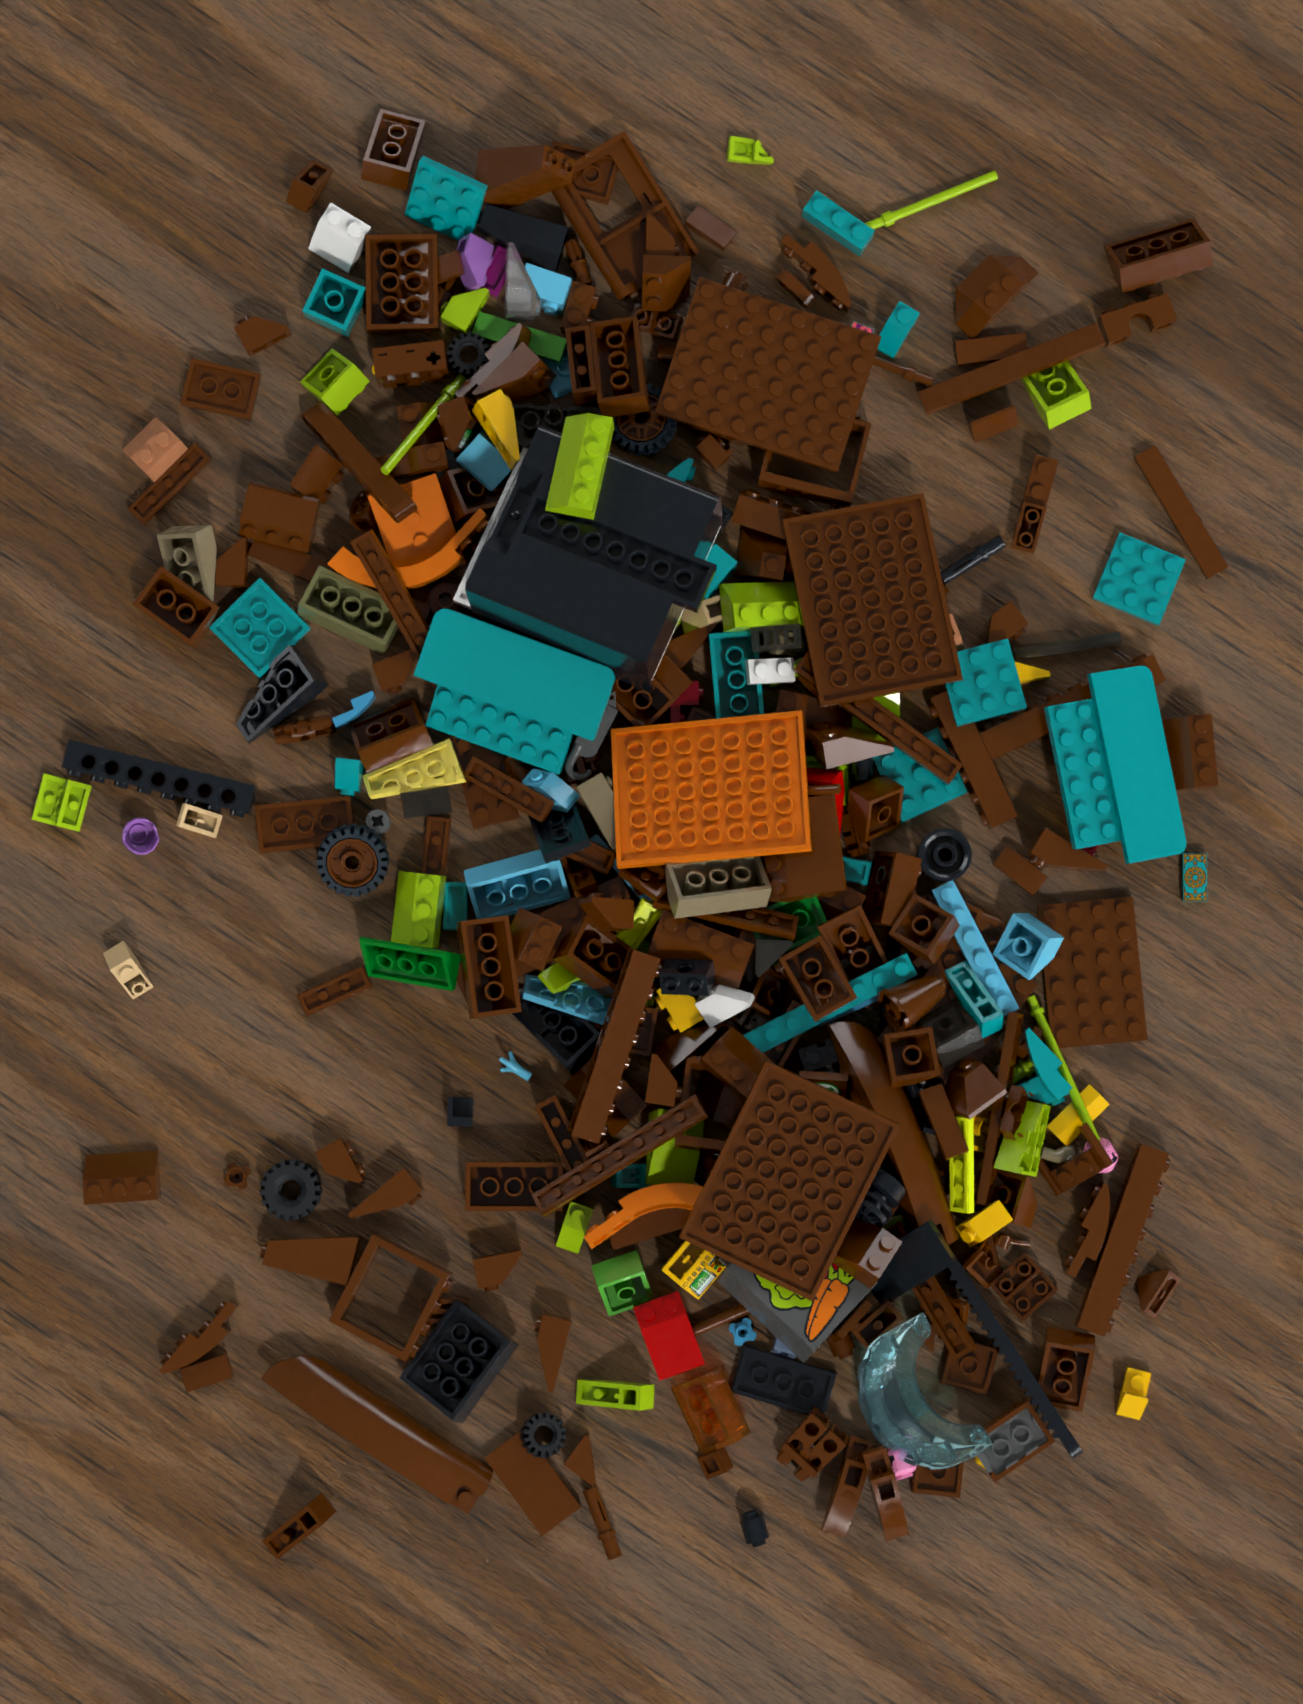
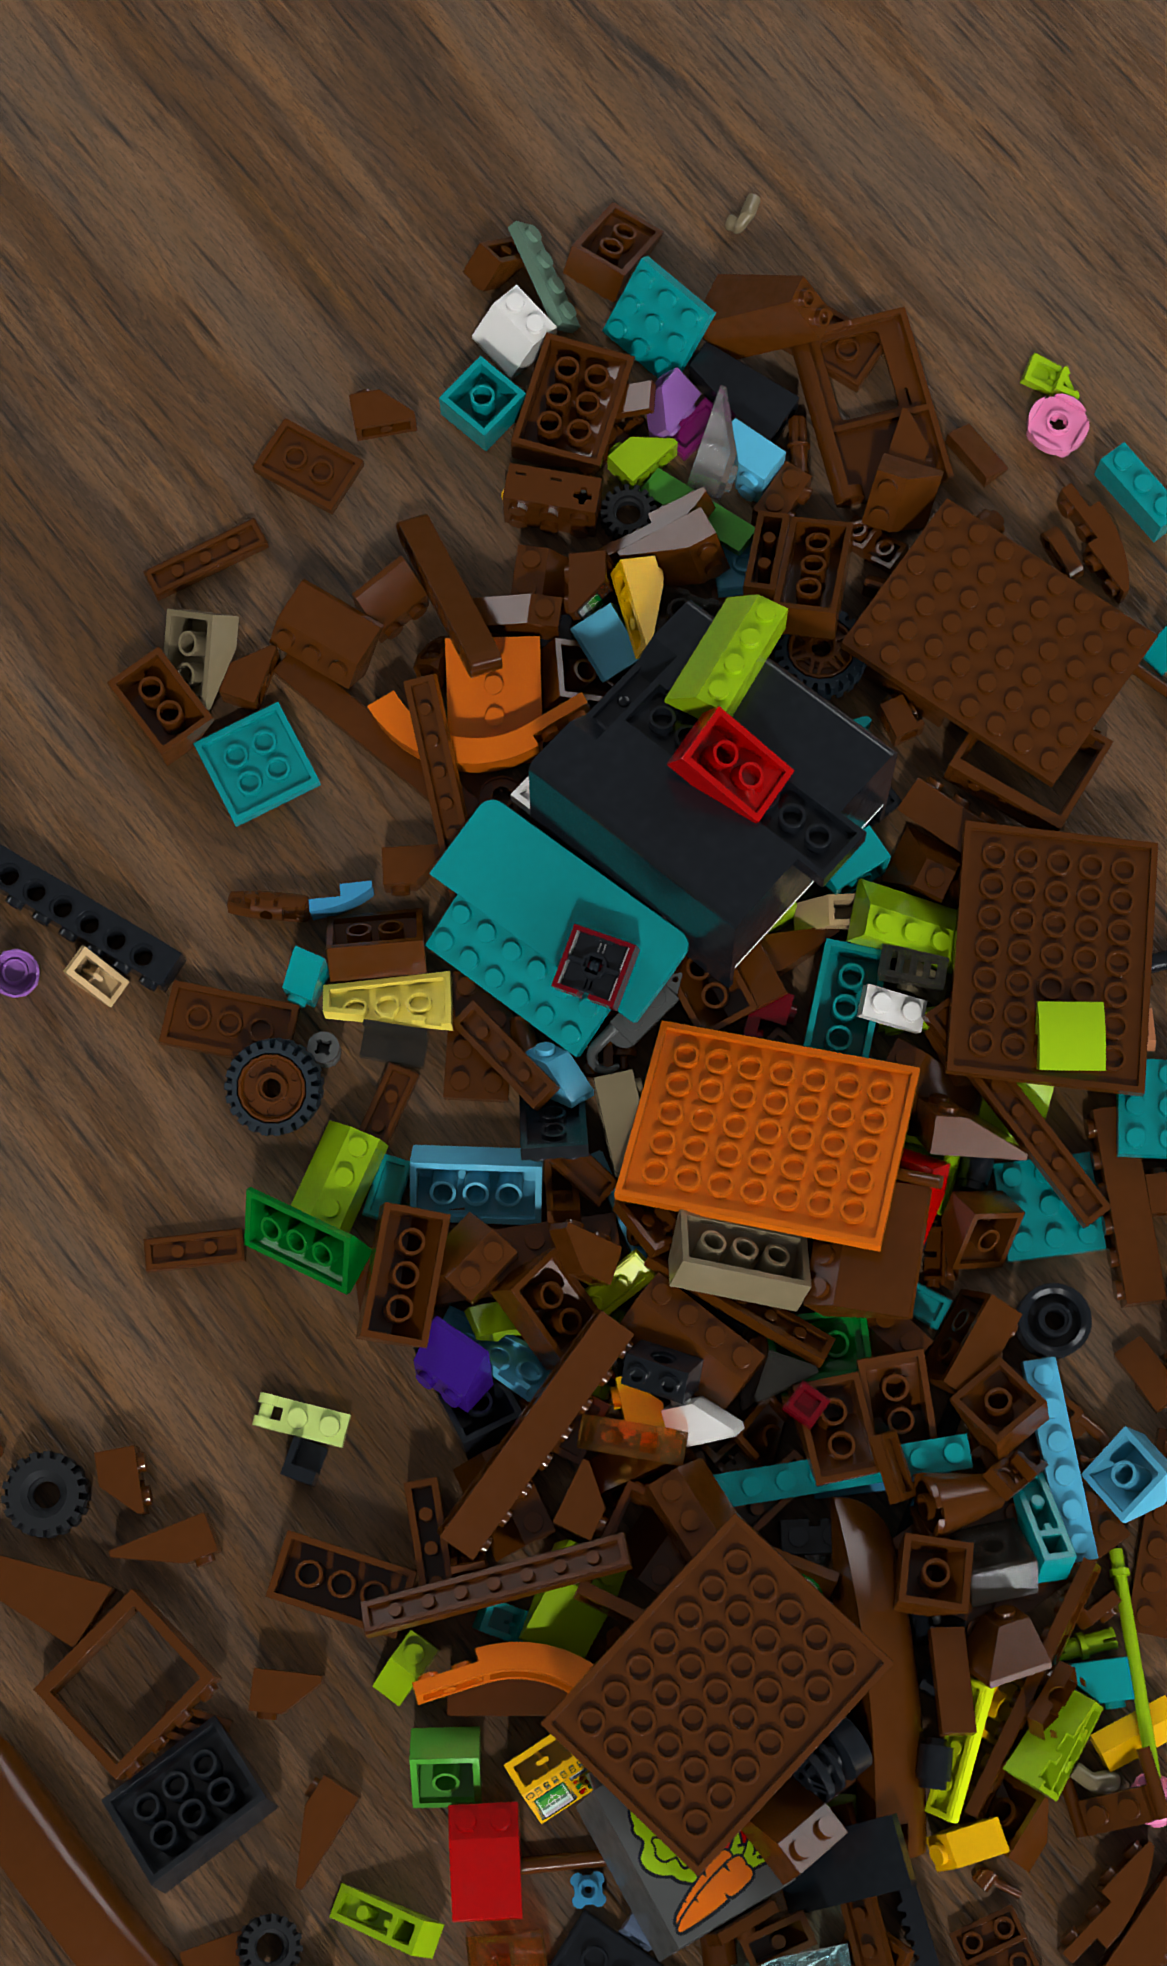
camera: 20 degrees right, 10 degrees down
(155, 449) = (203, 512): nougat slope -> none
(285, 690) = (263, 849): black wedge -> none
(335, 381) = (452, 497): lime slope -> none
(347, 186) = (542, 273): none -> sand green plate
(348, 610) = (374, 774): olive slope -> none
(446, 395) = (534, 578): lime bar -> none
(449, 1084) = (303, 1420): none -> yellowish green plate
(484, 89) = (747, 213): none -> dark tan arm
(514, 1067) = (395, 1424): medium azure bar -> none
(543, 1017) = (453, 1366): none -> dark purple slope
(554, 711) = (595, 967): none -> piece
(607, 546) = (730, 765): none -> red slope
(681, 1030) = (632, 1439): none -> clear orange slope
(756, 176) = (1057, 441): none -> bright pink plate
(792, 969) = (806, 1404): none -> dark red tile
(862, 992) = (893, 1466): none -> reddish brown tile
(900, 655) = (1071, 1035): none -> lime slope
(946, 970) = (1013, 1474): none -> reddish brown slope
(947, 1179) = (934, 1764): none -> black brick
(983, 1262) = (949, 1900): reddish brown slope -> none
(1045, 1065) = (1113, 1648): teal slope -> none

